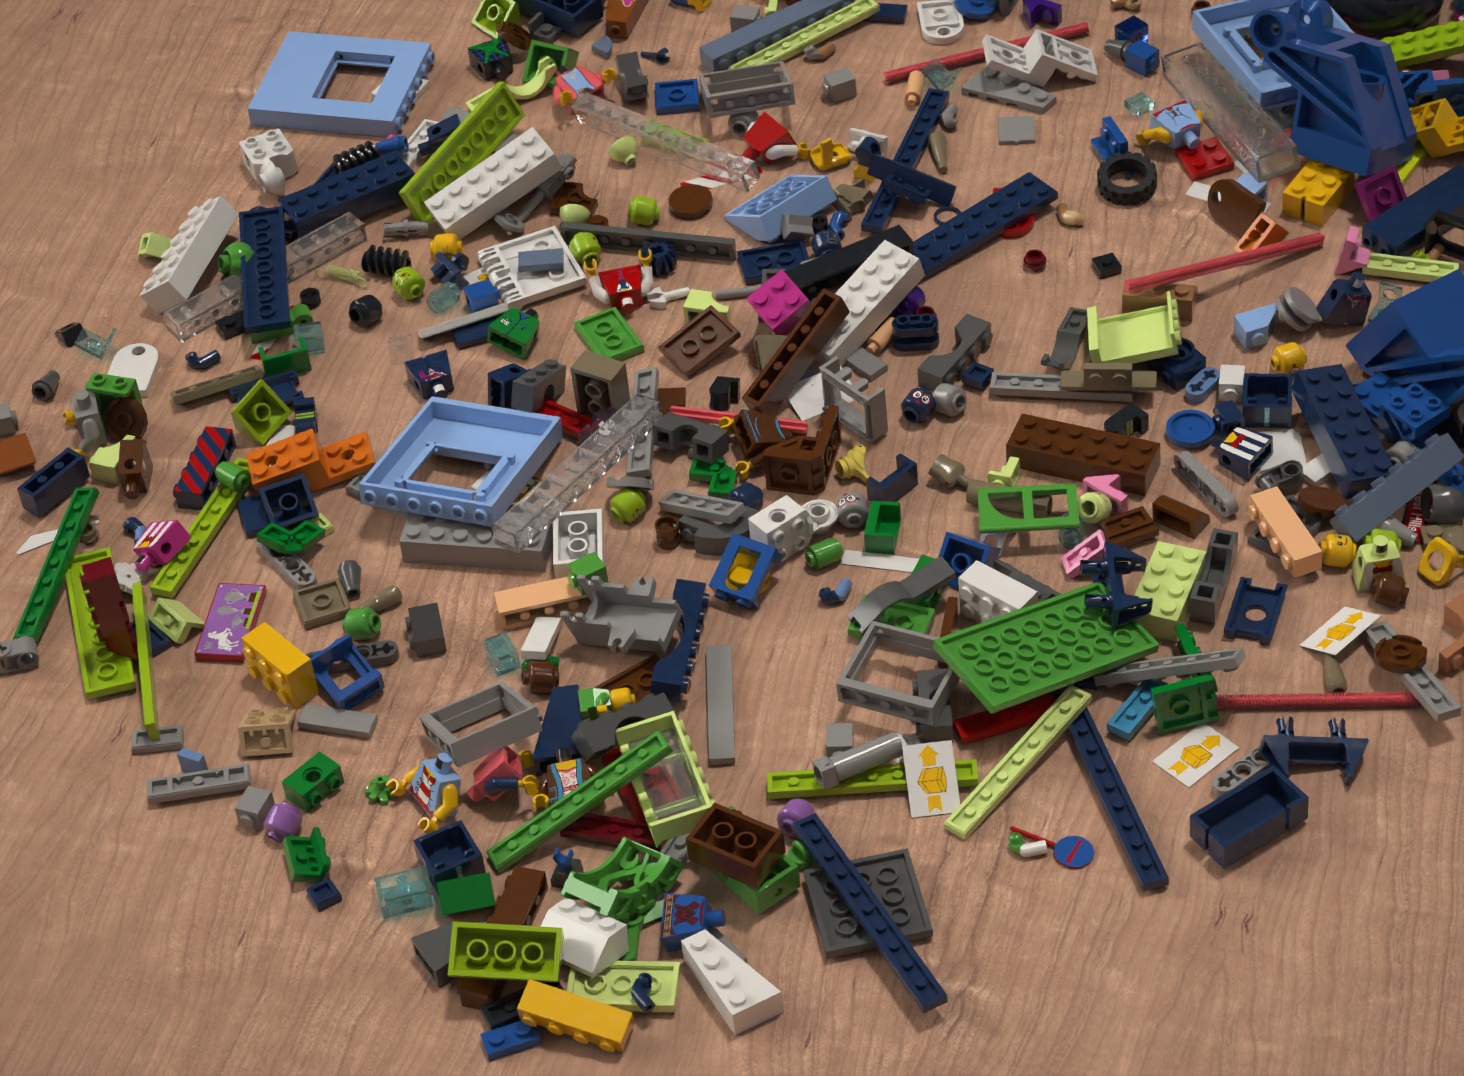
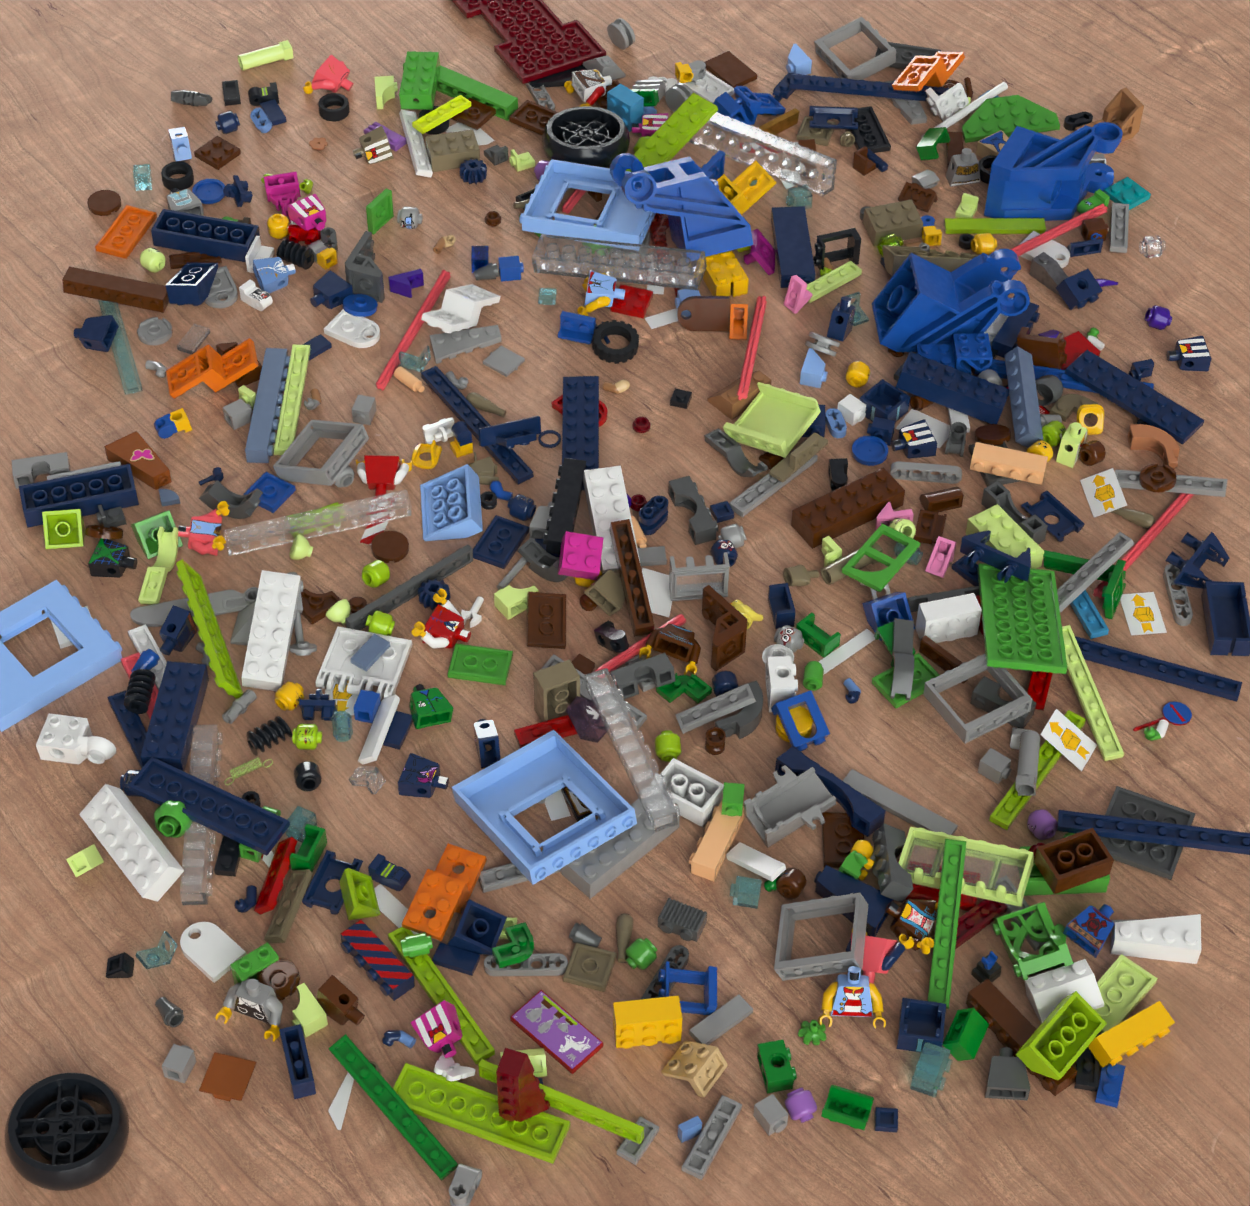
camera: 60 degrees left, 5 degrees up
(232, 362) = (274, 880): none -> red plate
(543, 380) = (510, 723): dark grey arch -> none
(631, 482) = (657, 730): light grey tile -> none
(641, 990) = (1136, 988): dark blue arm -> none
(796, 227) = (487, 509): light grey piece -> none

